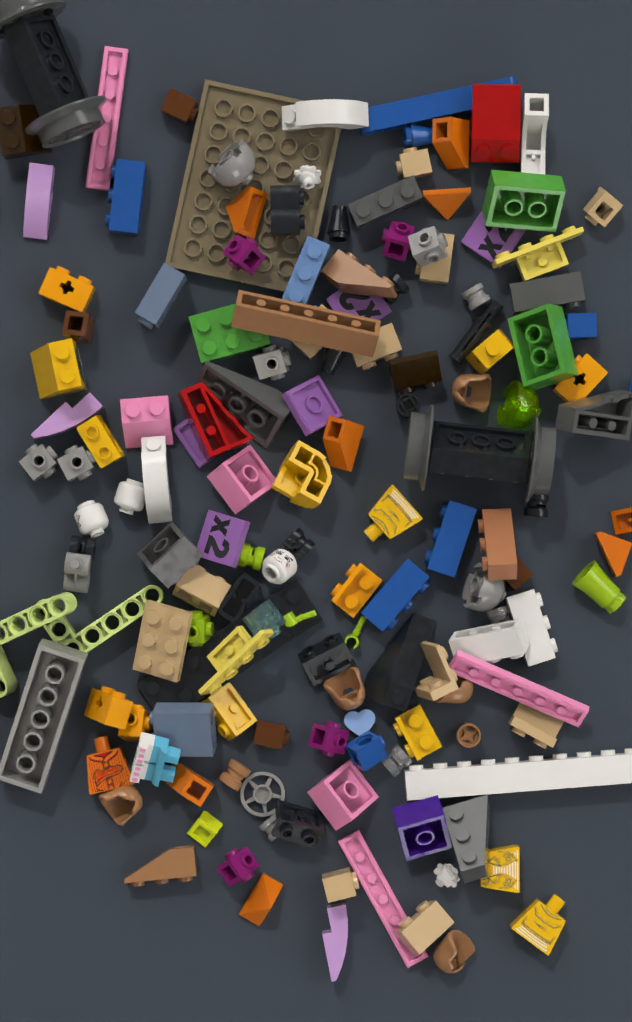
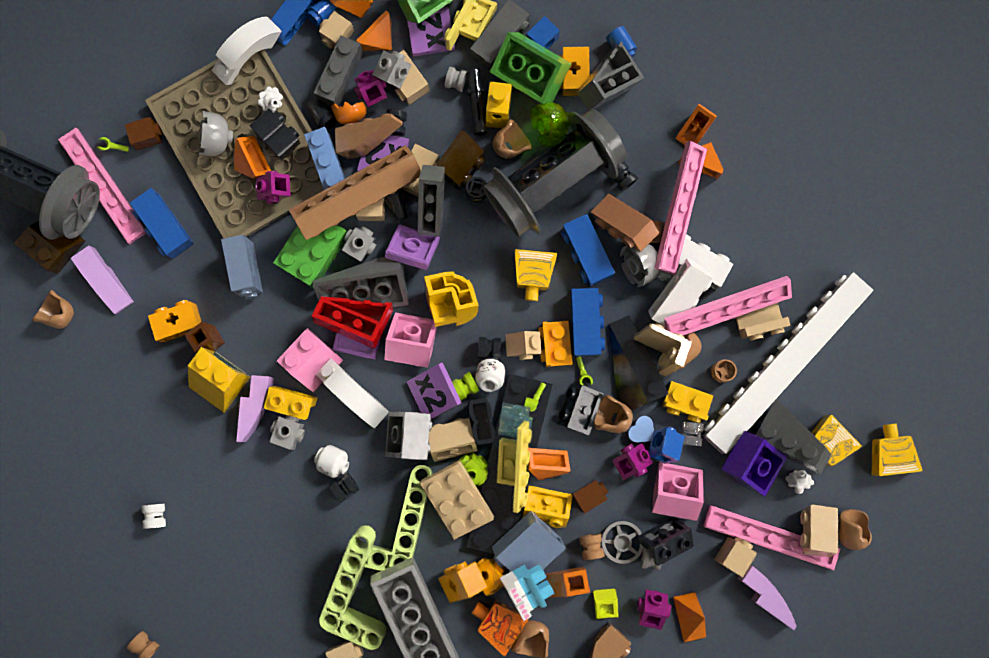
camera: 40 degrees left, 5 degrees down
(30, 461) = (253, 458): light grey brick -> none
(77, 572) = (354, 507): light grey beam -> none
(130, 496) = (344, 421): white head -> none
(142, 89) = (110, 145): none -> lime hand
(261, 678) = (548, 463): none -> orange slope
(328, 567) = (523, 344): none -> tan brick
(342, 442) = (455, 252): orange slope -> none
(359, 245) = (349, 113): none -> orange hair
(360, 383) = (431, 200): none -> dark grey brick
(555, 574) = (680, 208): none -> bright pink tile
(599, 587) = (717, 192): lime plant -> none

